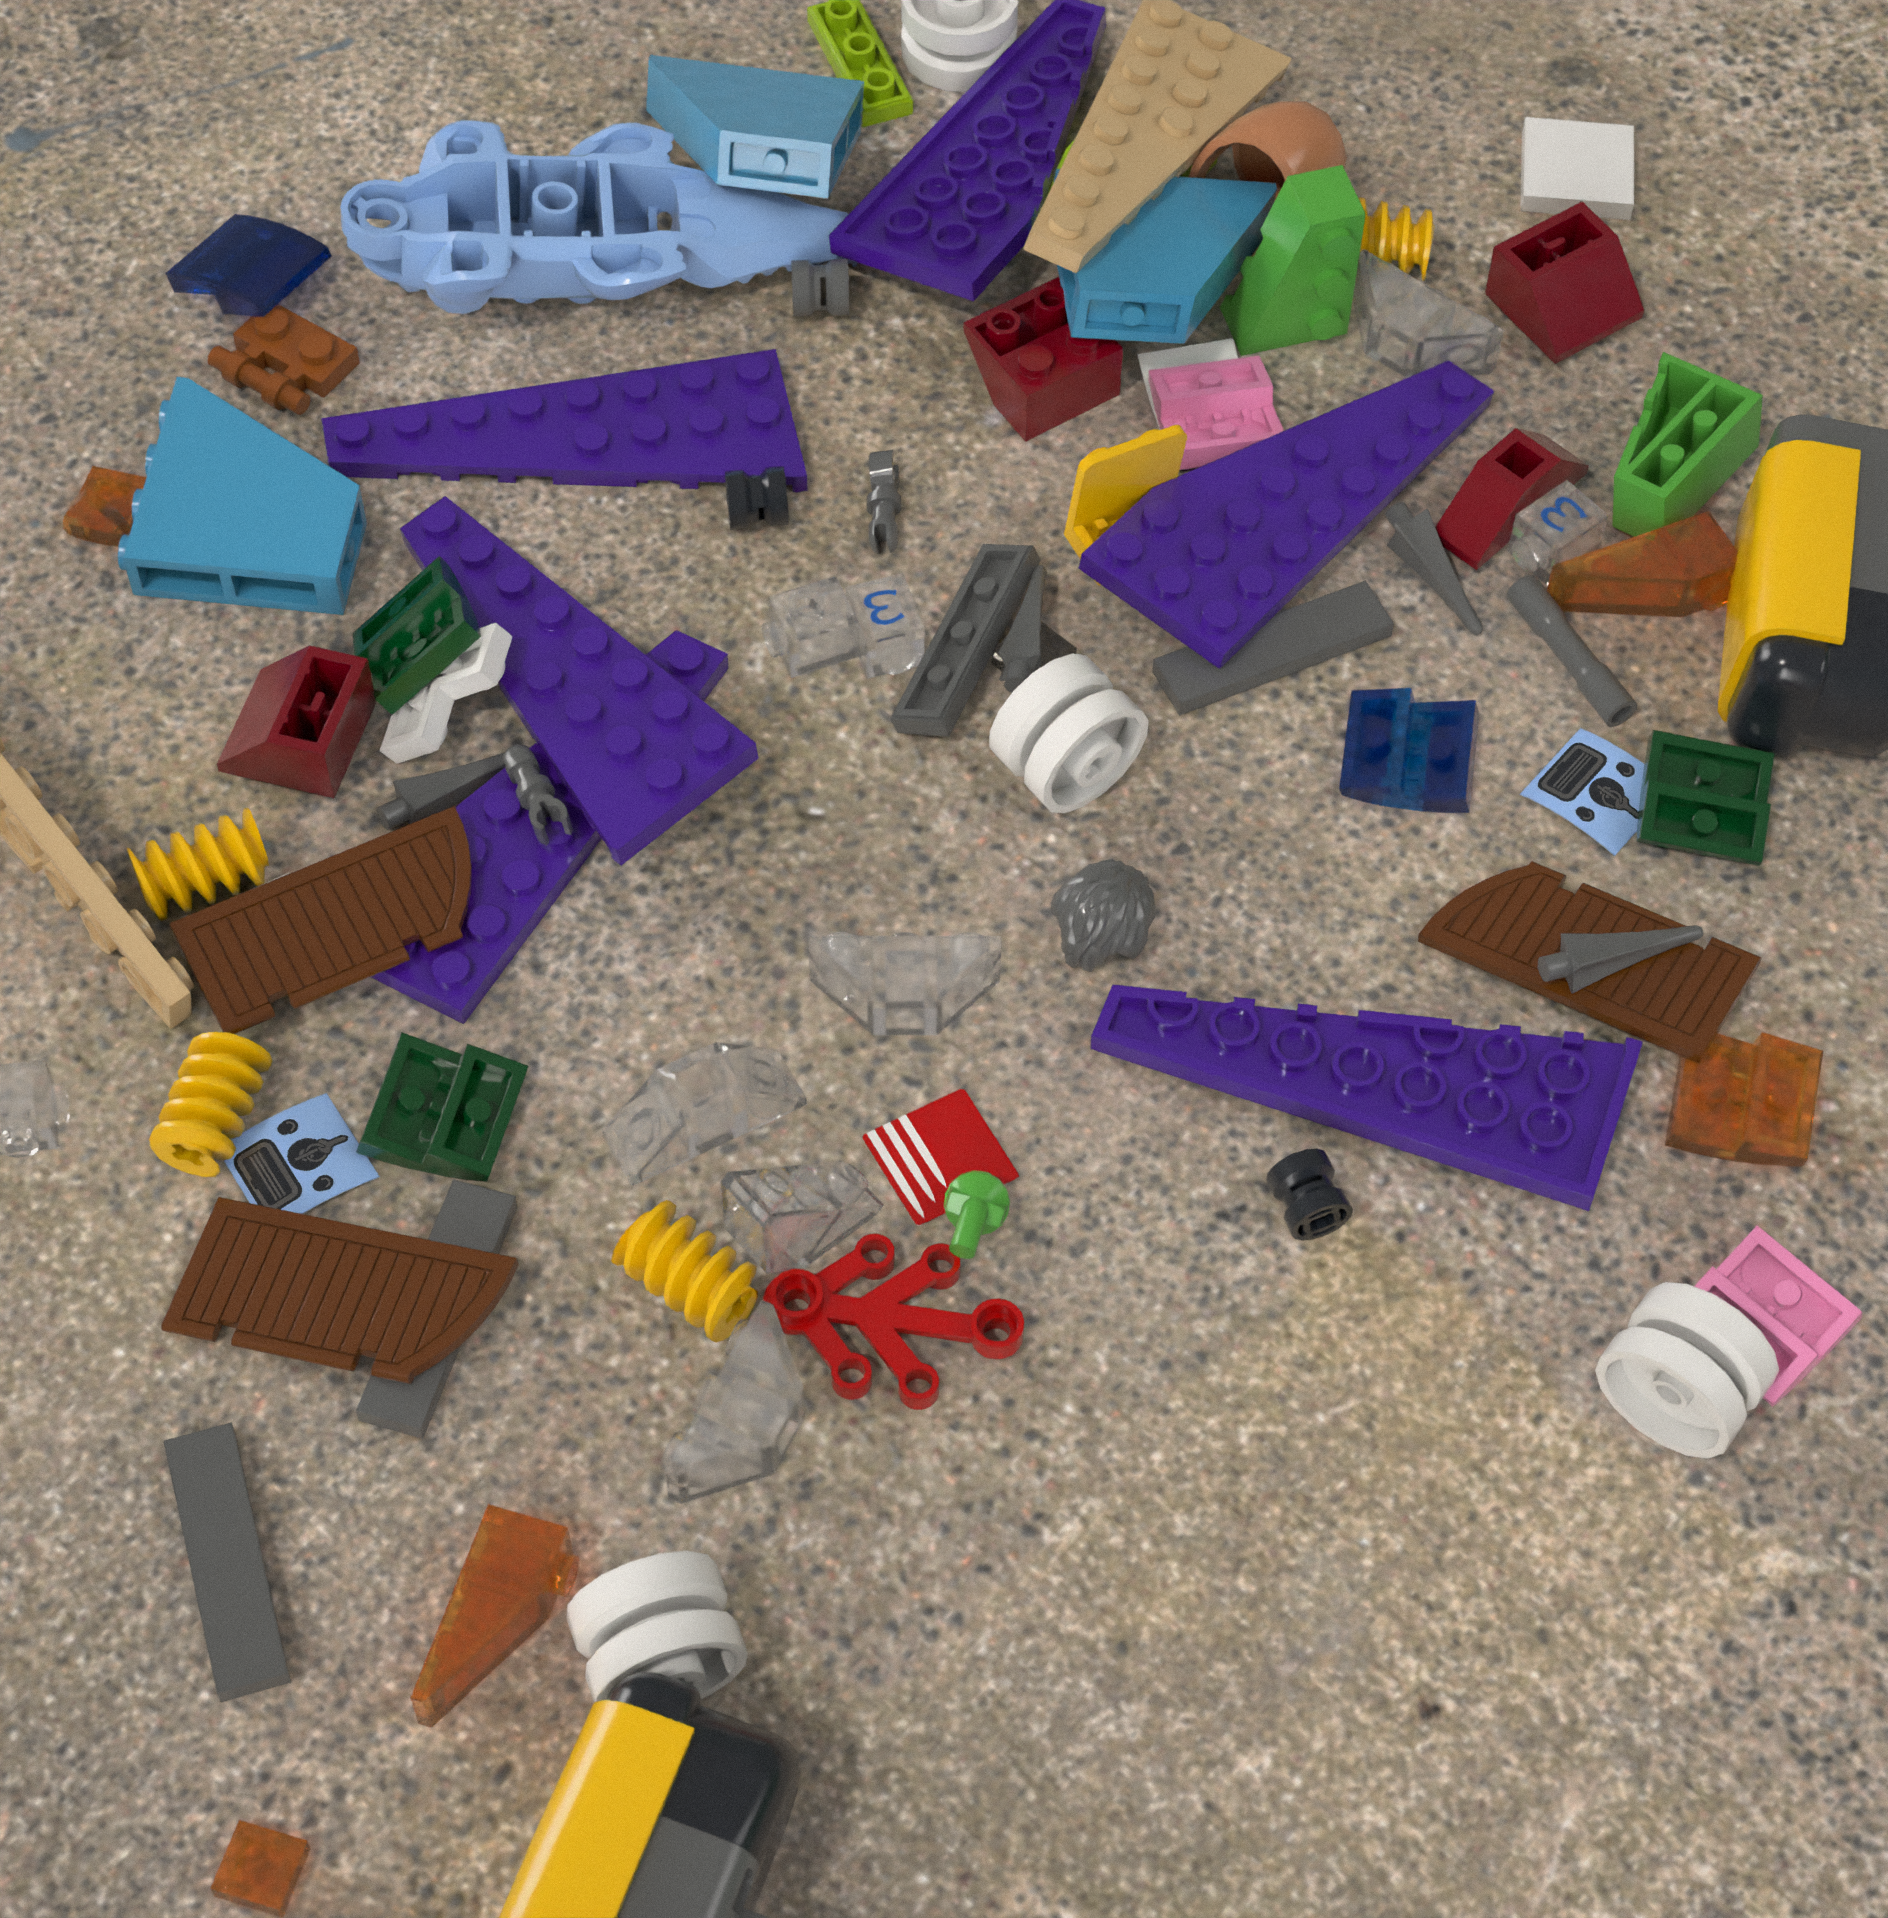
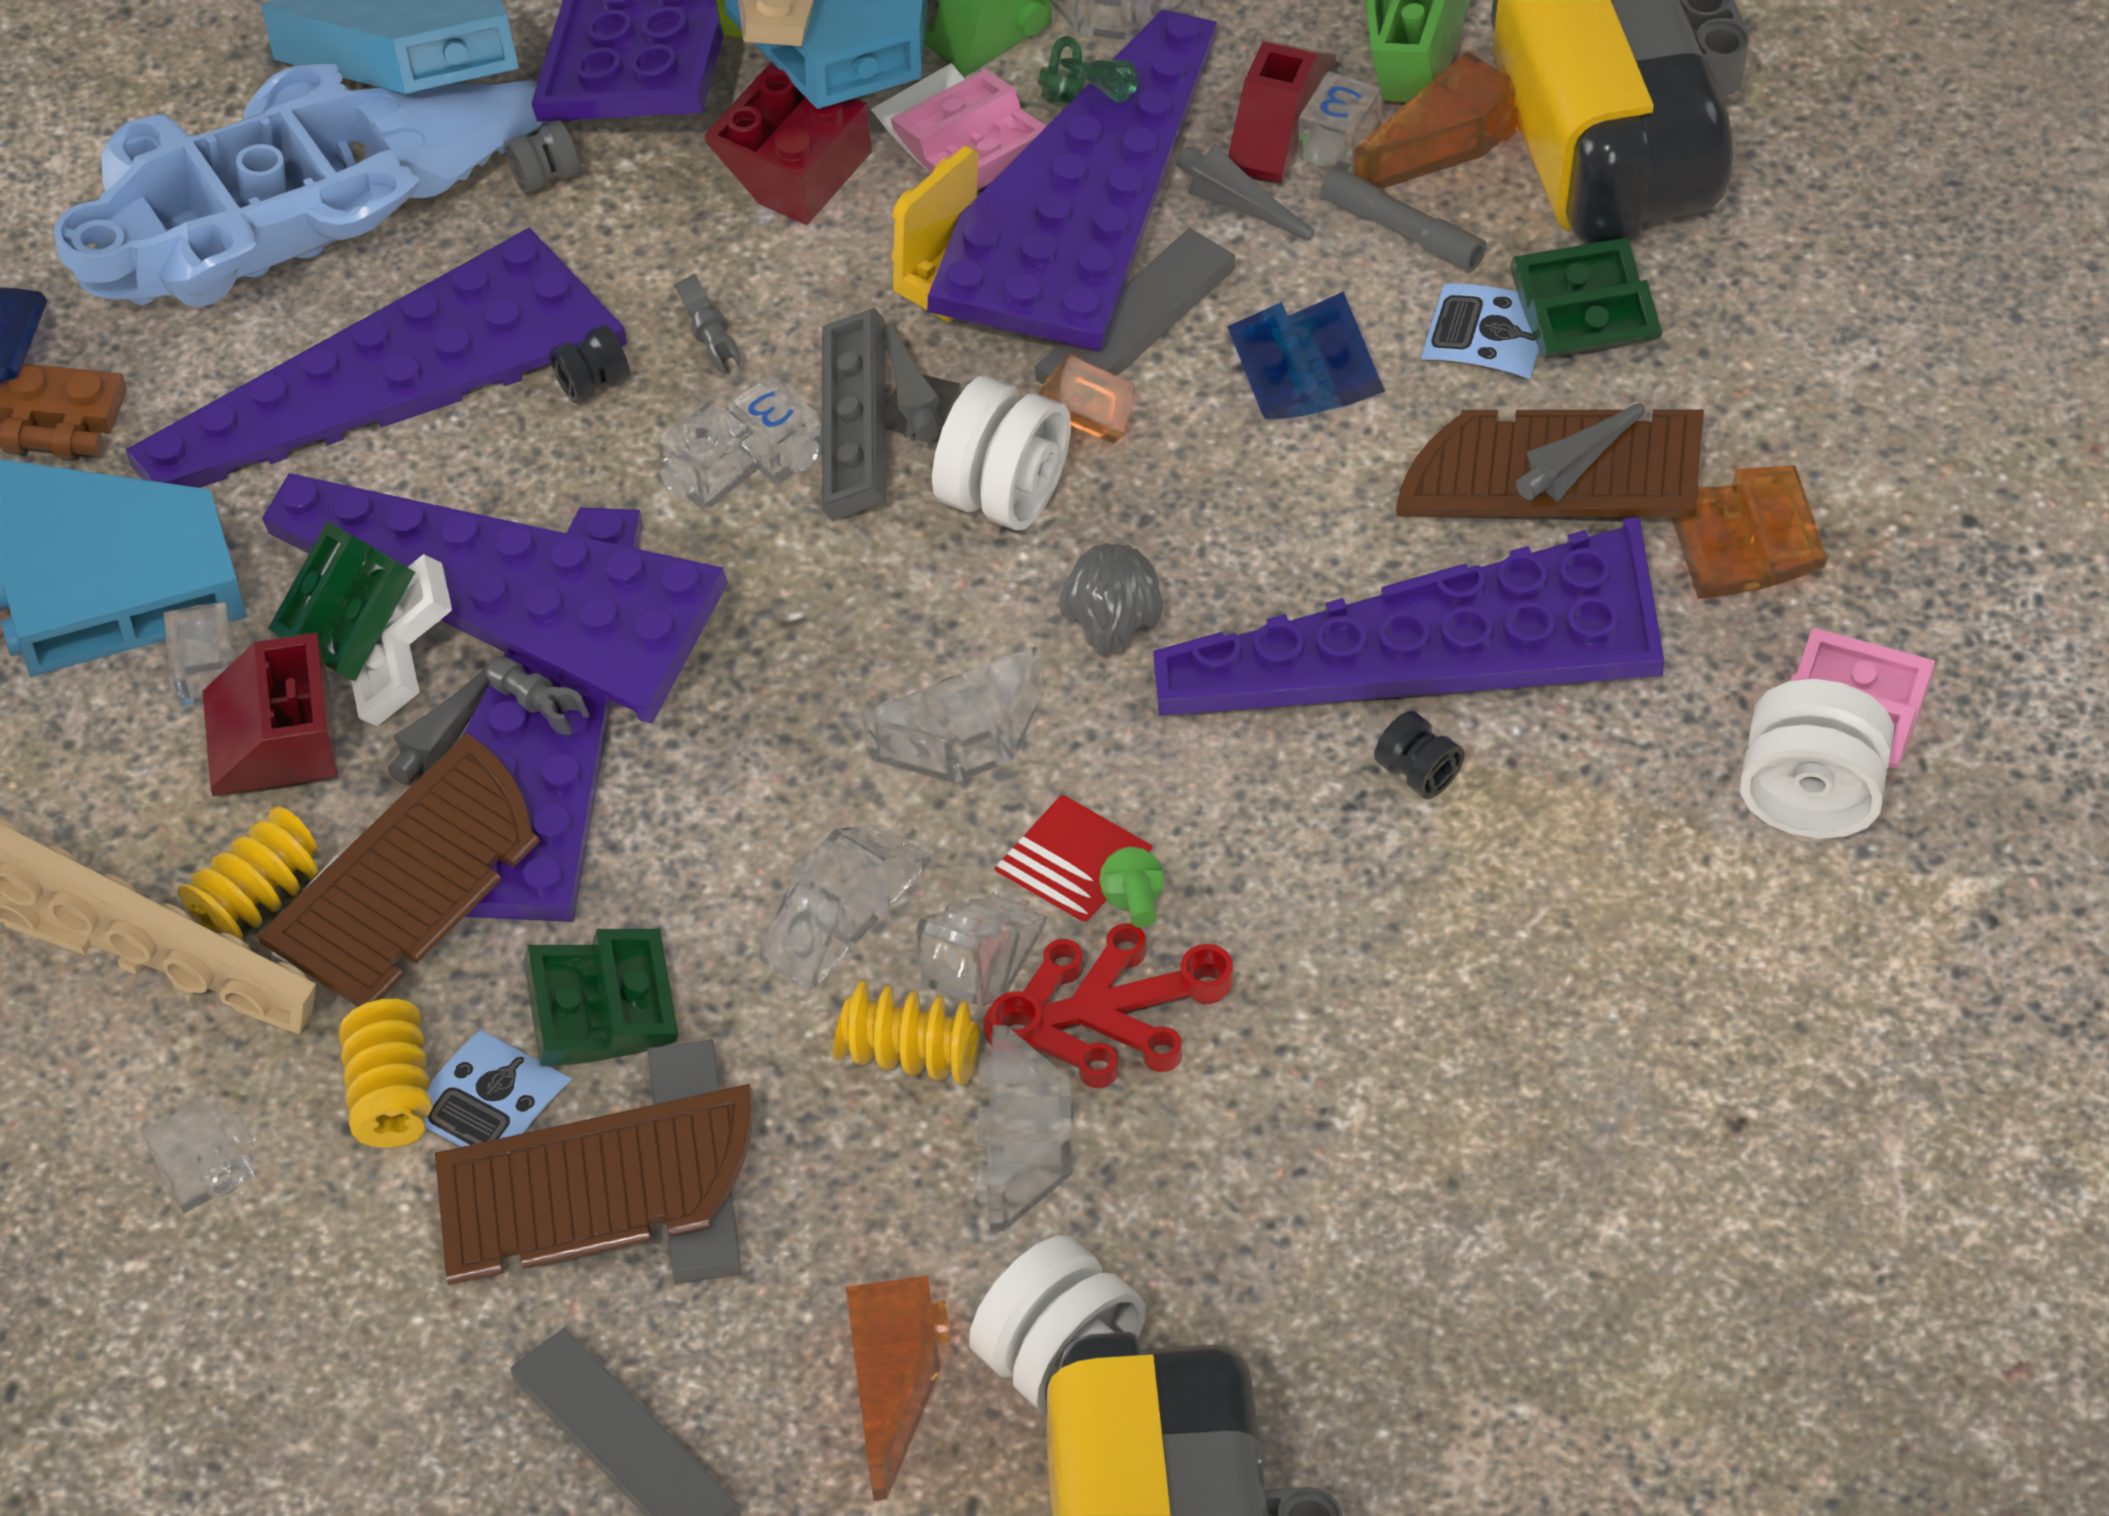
camera: 20 degrees left, 5 degrees down
(275, 627) = (198, 648): none -> clear brick
(1183, 710) = (1094, 397): none -> clear orange tile
(1329, 391) = (1113, 77): none -> clear green piece

